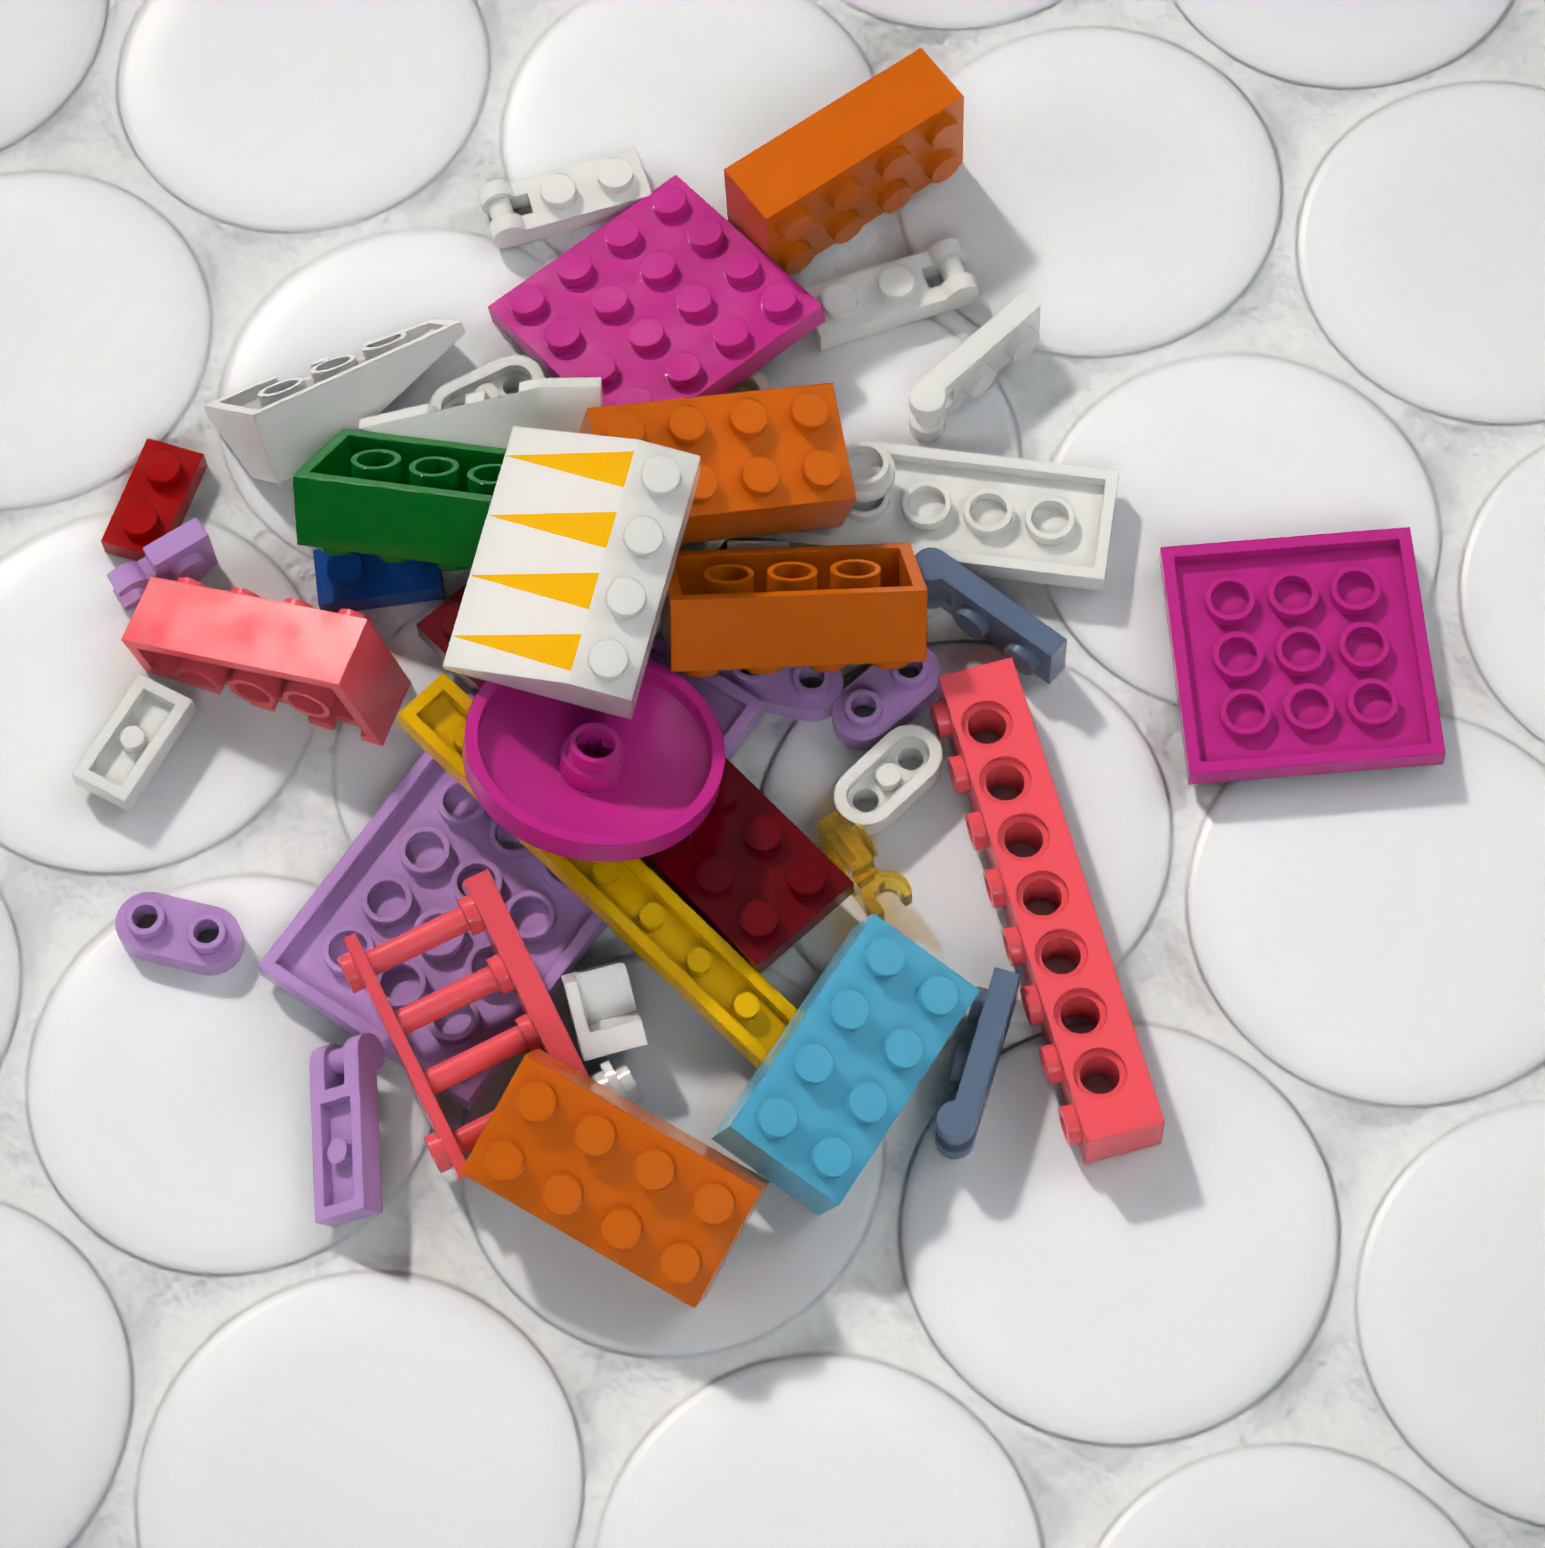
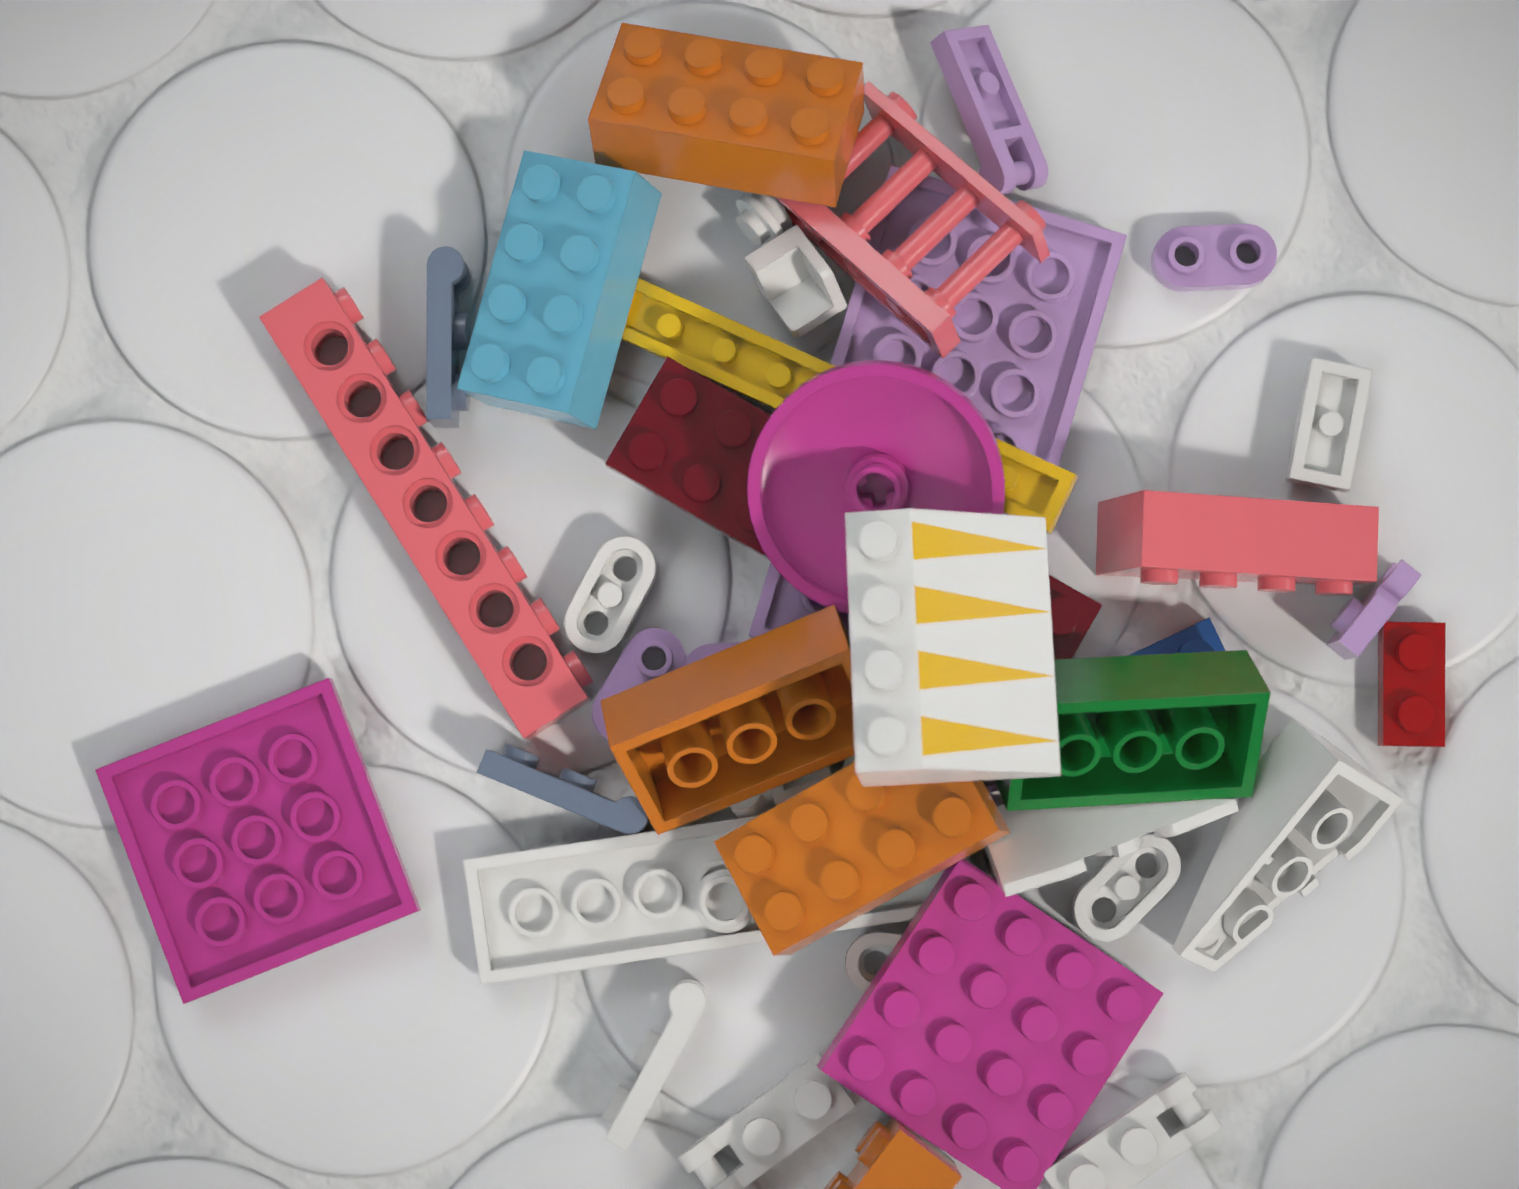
camera: 160 degrees right, 20 degrees up
(854, 854) = (620, 506): clear yellow plate -> none

